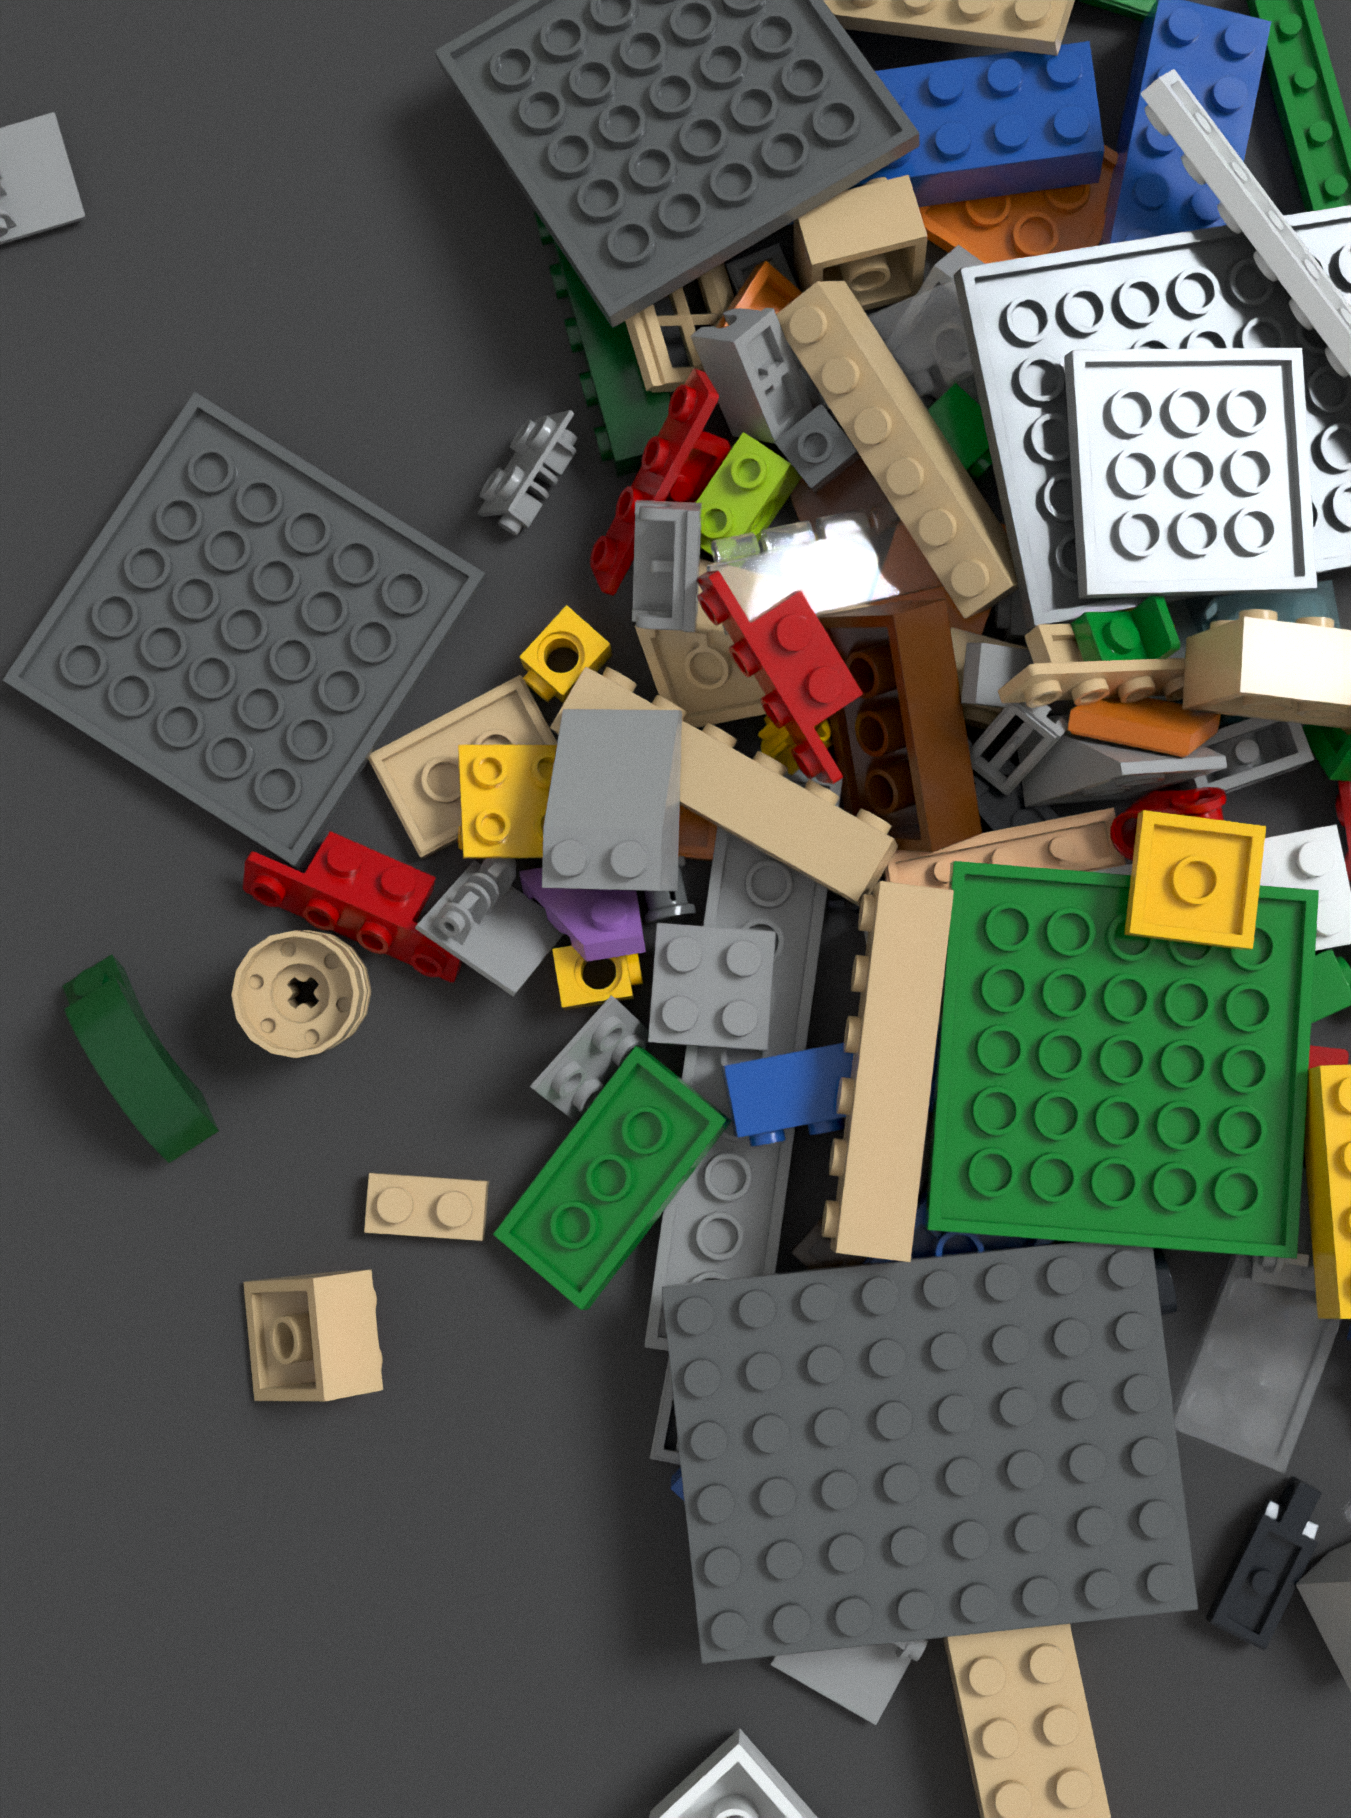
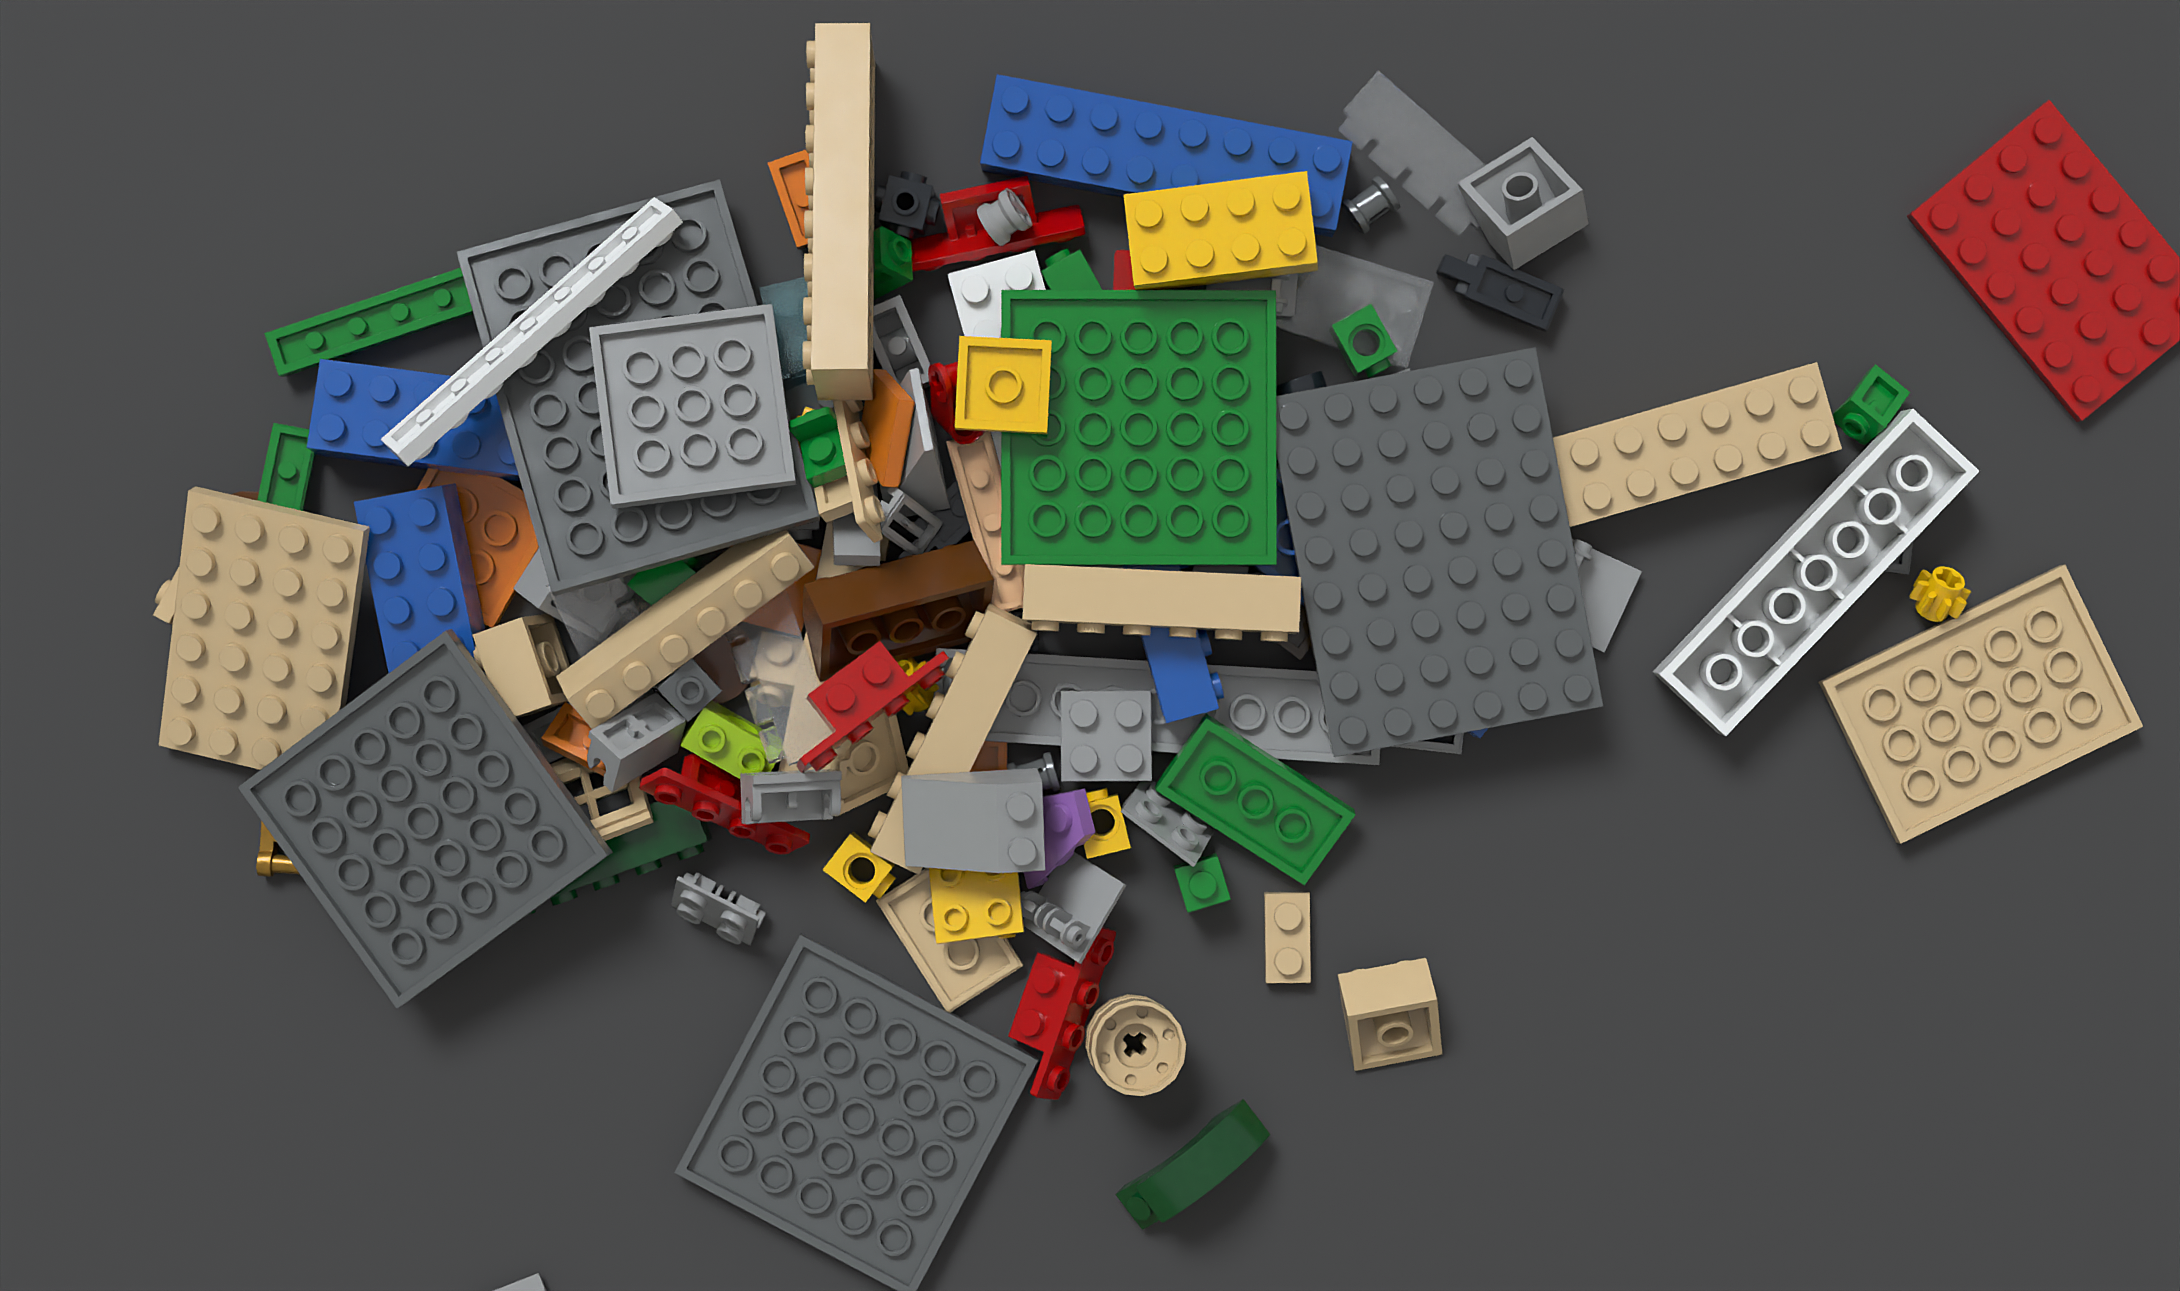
camera: 105 degrees left, 5 degrees up
(506, 1098) = (1202, 884): none -> green brick
(1240, 1377) = (1365, 321): none -> green brick

